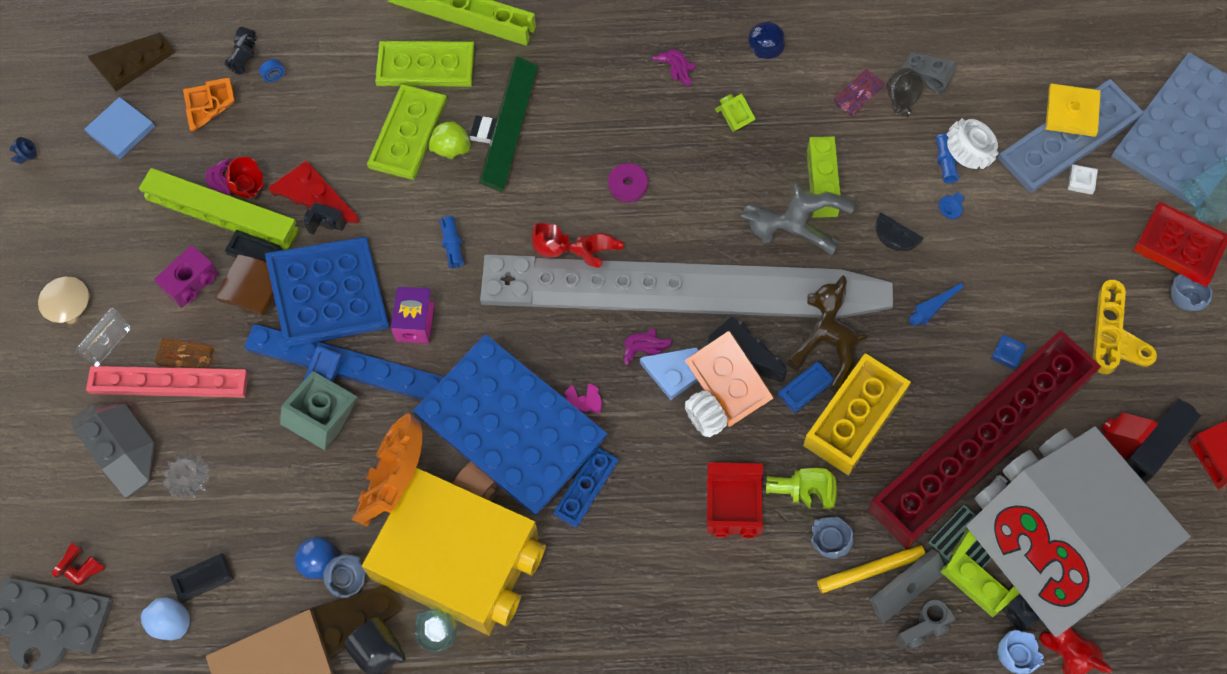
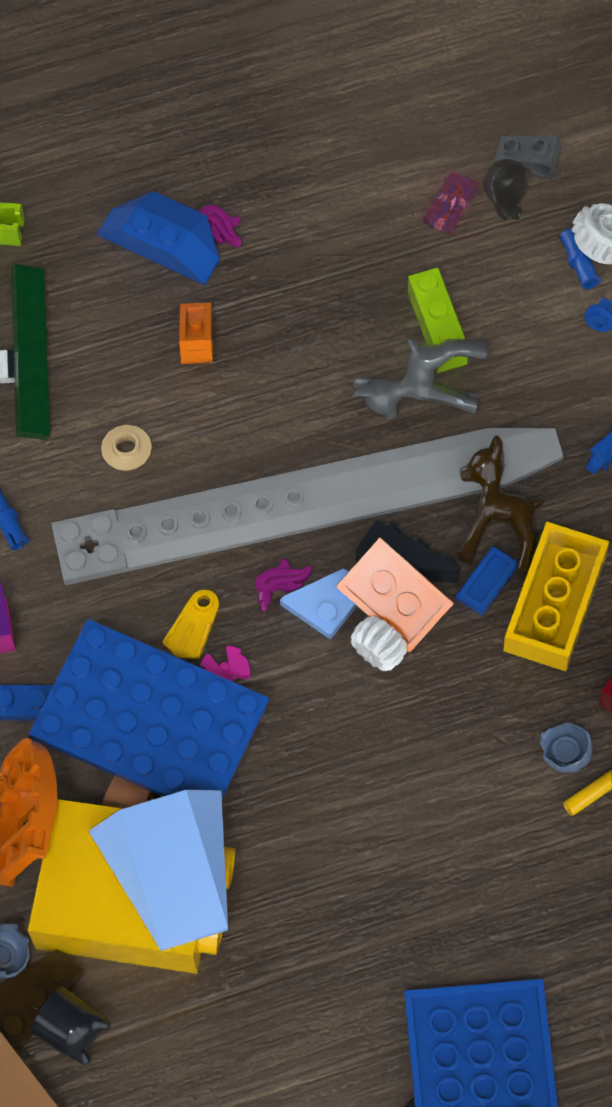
camera: 15 degrees left, 0 degrees up
(435, 630) = (134, 983): clear light blue hair -> none
(488, 545) = (171, 863): none -> light blue wedge
(549, 240) = (127, 485): red hair -> none
(564, 221) = (129, 460): none -> tan piece
(567, 362) = (192, 627): none -> yellow piece
(579, 500) = (256, 786): blue tile -> none
(590, 244) = (178, 475): red helmet -> none
(624, 192) = (200, 401): magenta piece -> none
(635, 63) = (164, 234): none -> blue wedge
(635, 141) = (196, 333): none -> orange plate
(734, 499) = (440, 735): red panel -> none
(735, 111) = (307, 265): lime bracket -> none
(767, 40) = (320, 164): clear blue hair -> none
(804, 483) = (517, 693): lime piece -> none
(896, 235) = (543, 369): black tile -> none

